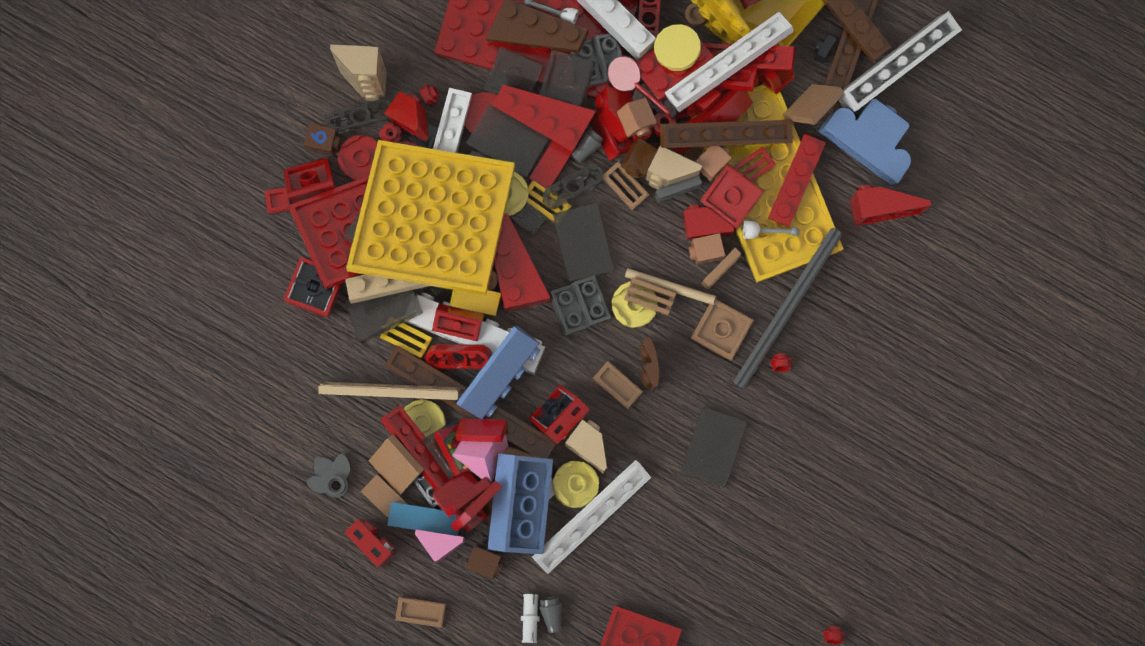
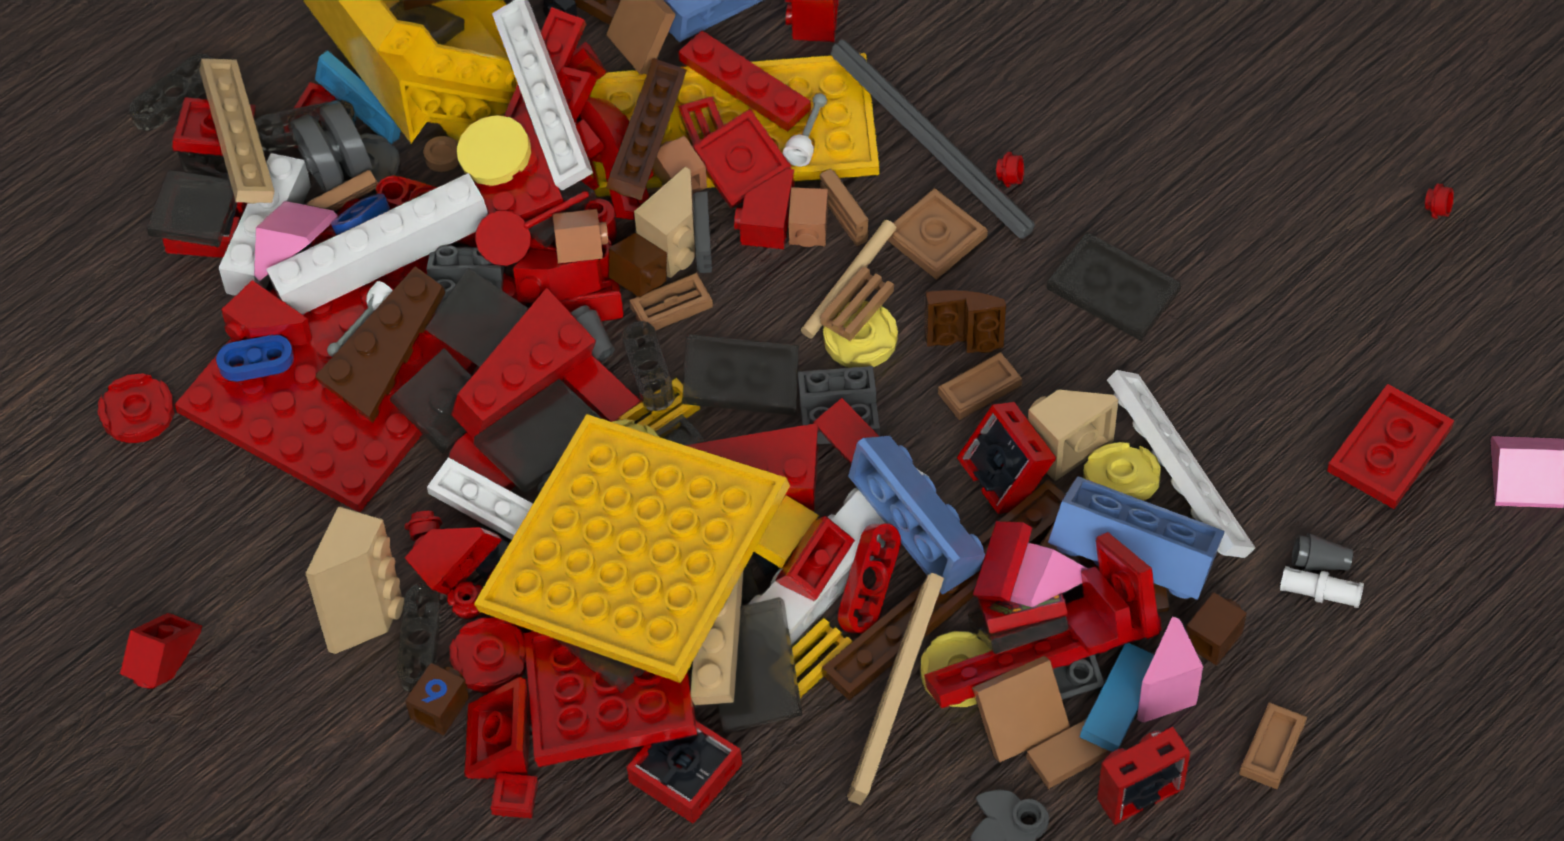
camera: 70 degrees left, 25 degrees down
(549, 320) = (843, 428): none -> red tile

